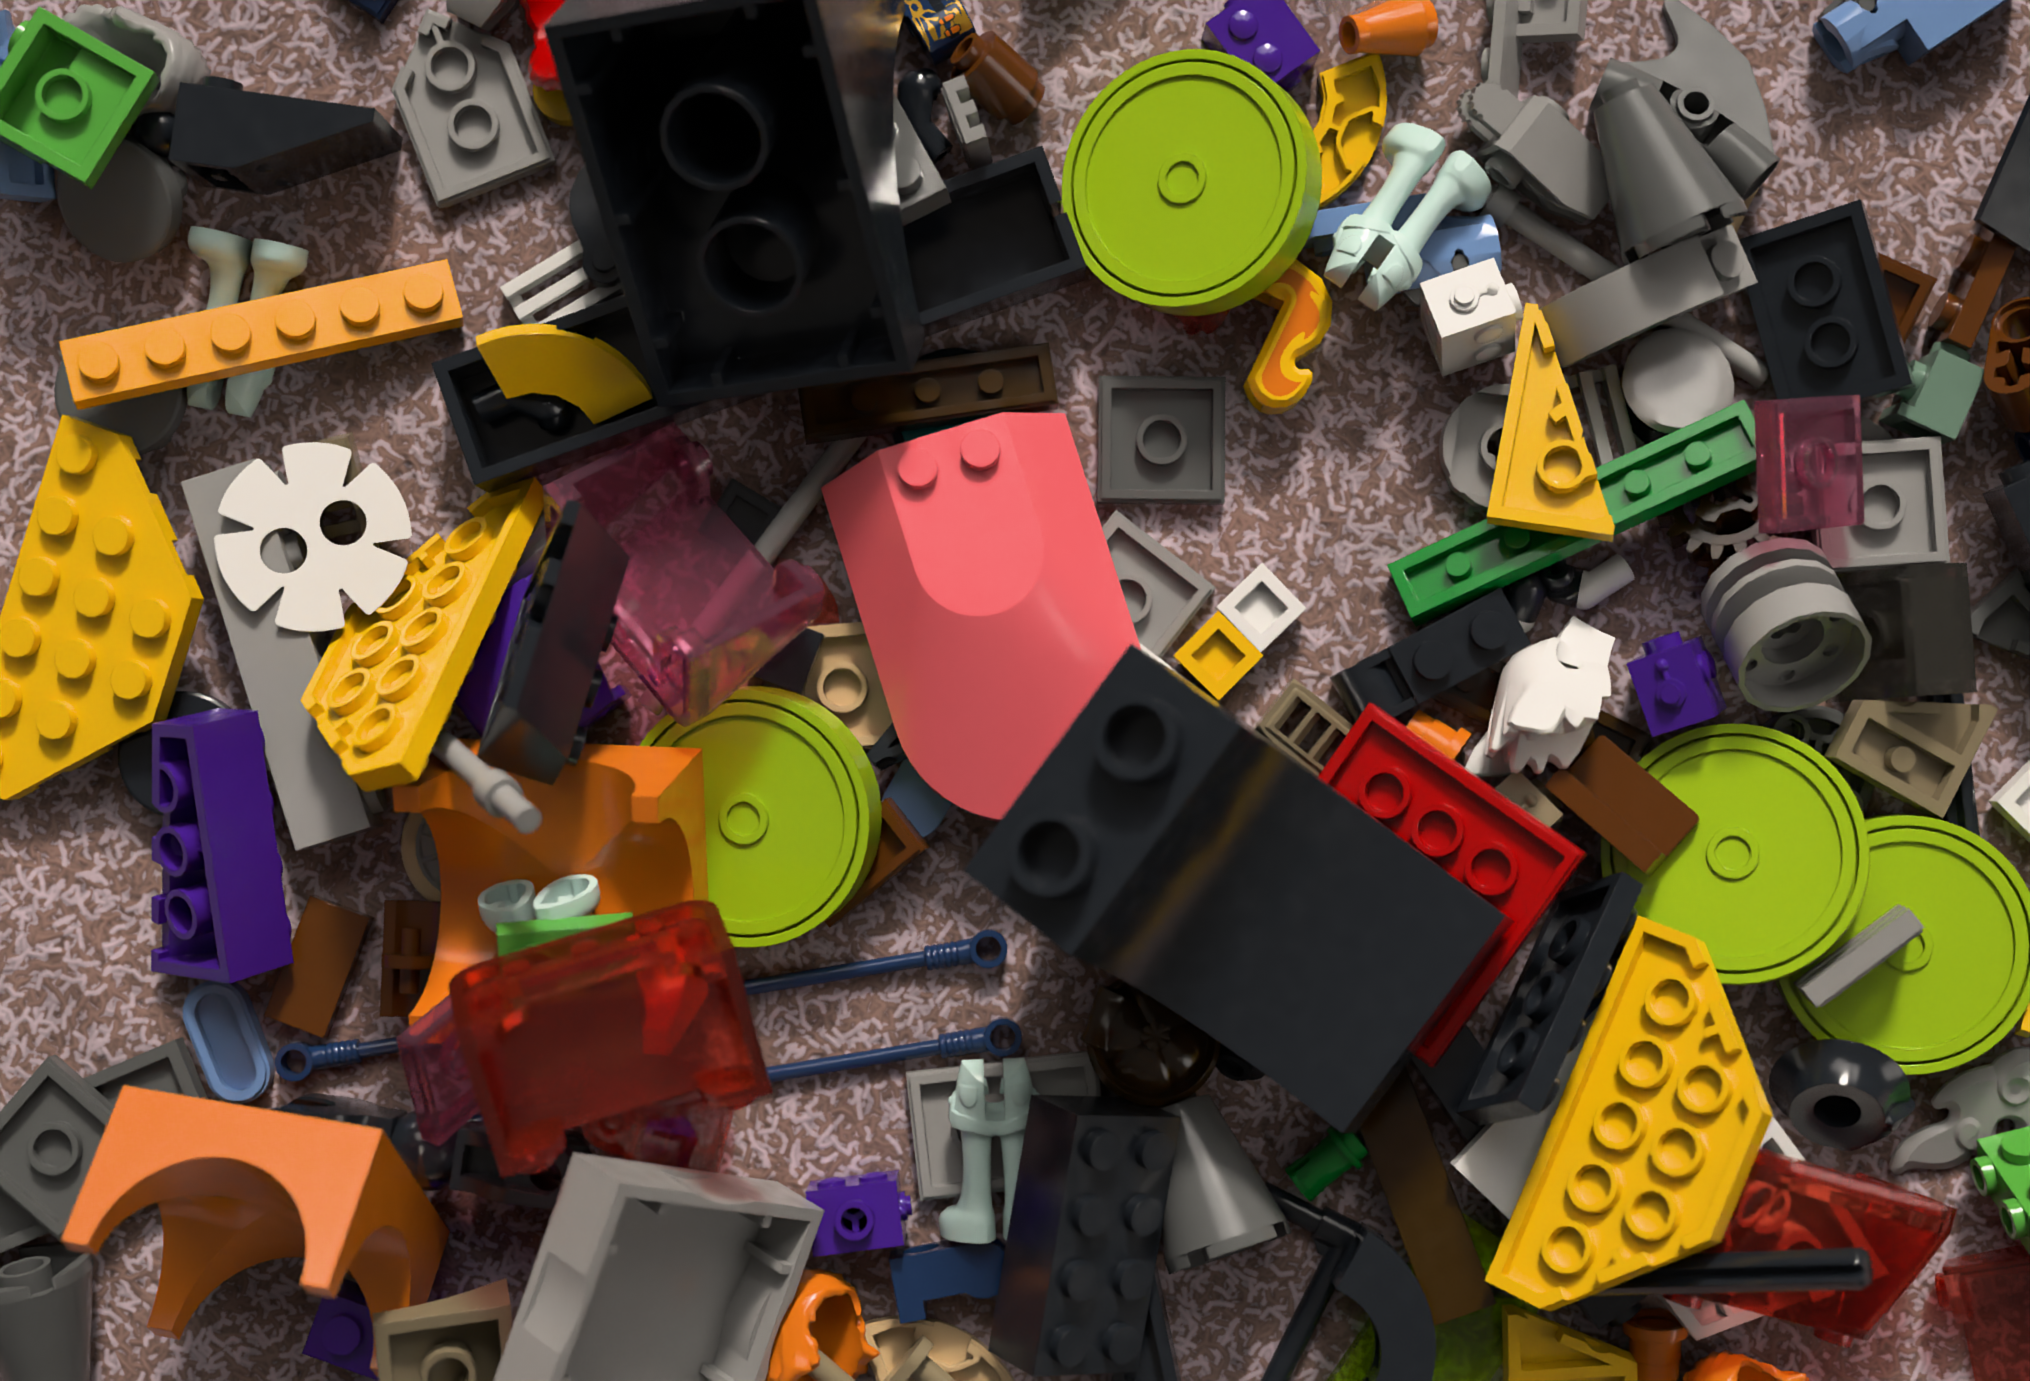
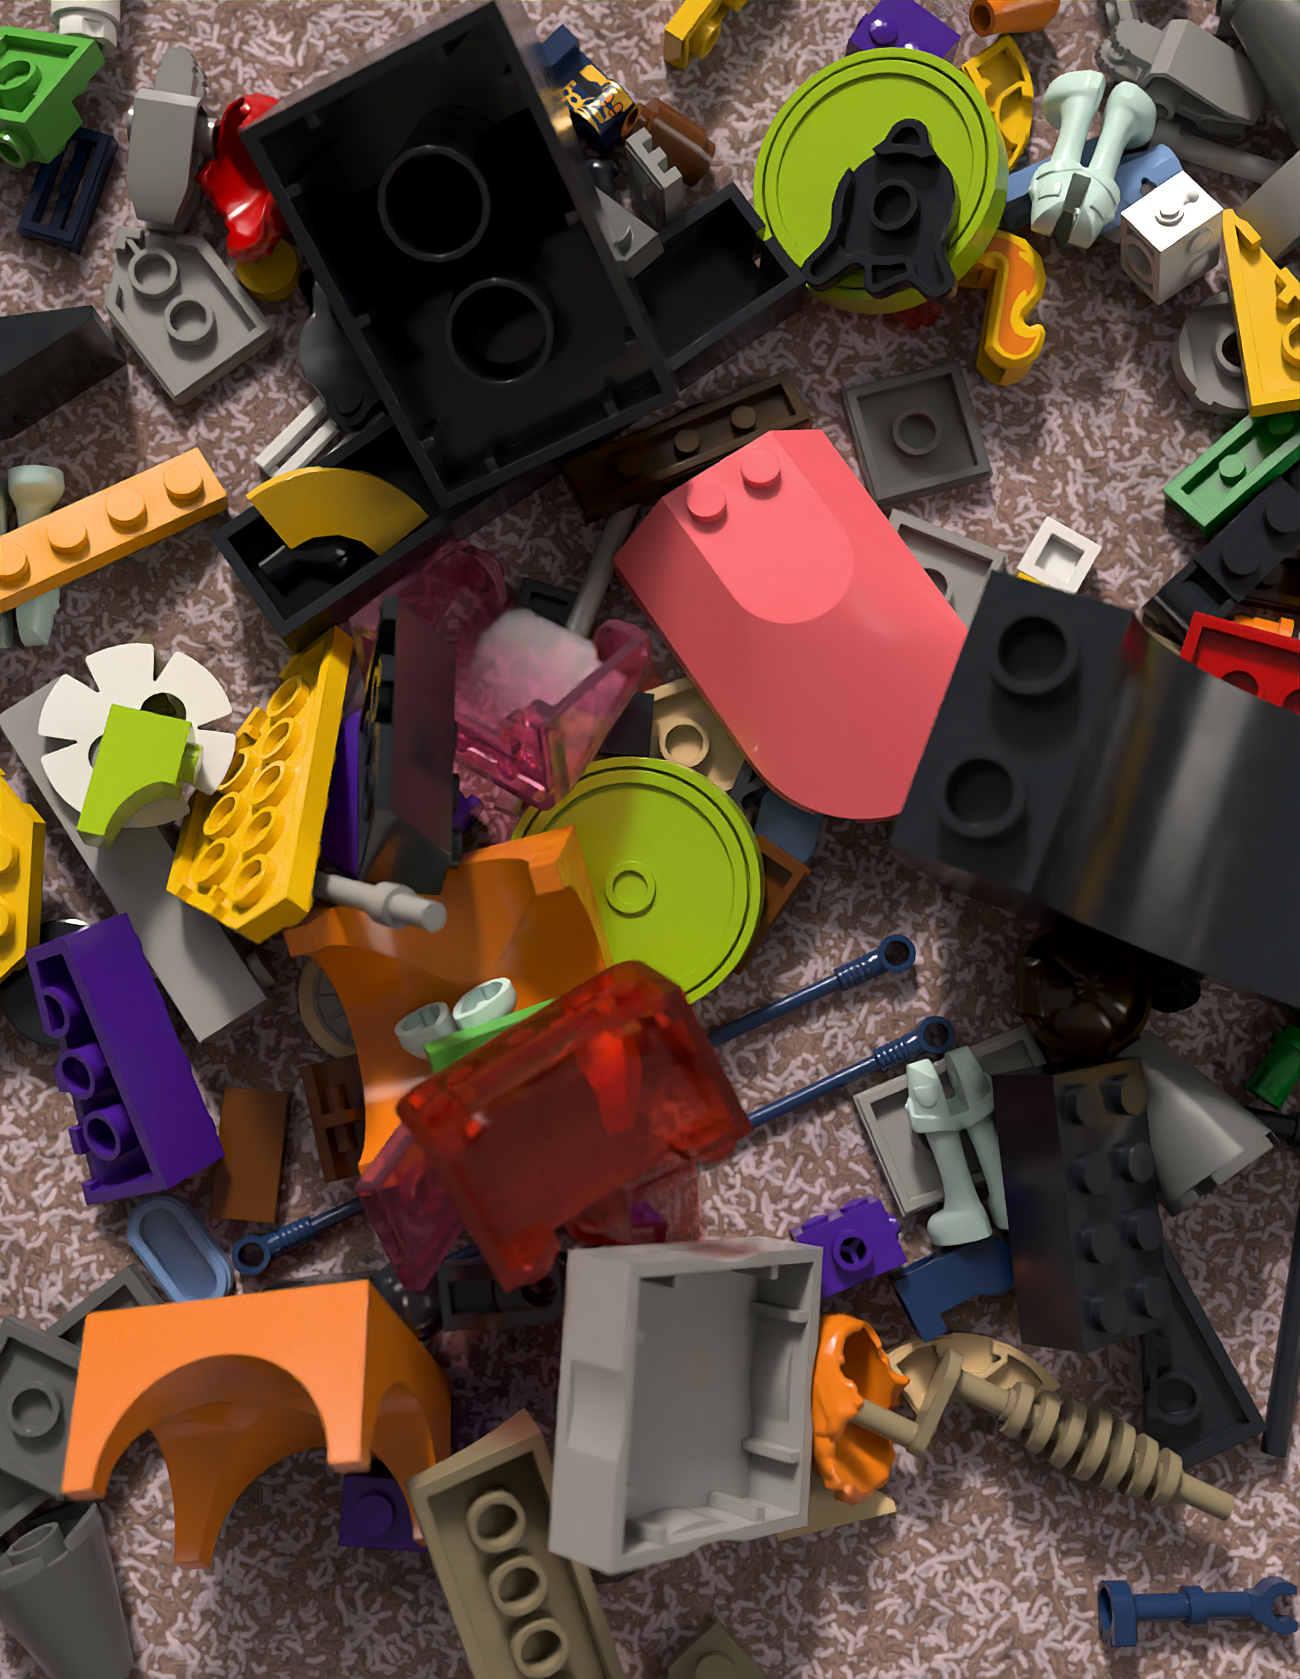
camera: 15 degrees left, 5 degrees down
(302, 571) = (137, 763): none -> lime arch
(1184, 235) = (892, 221): none -> black tile

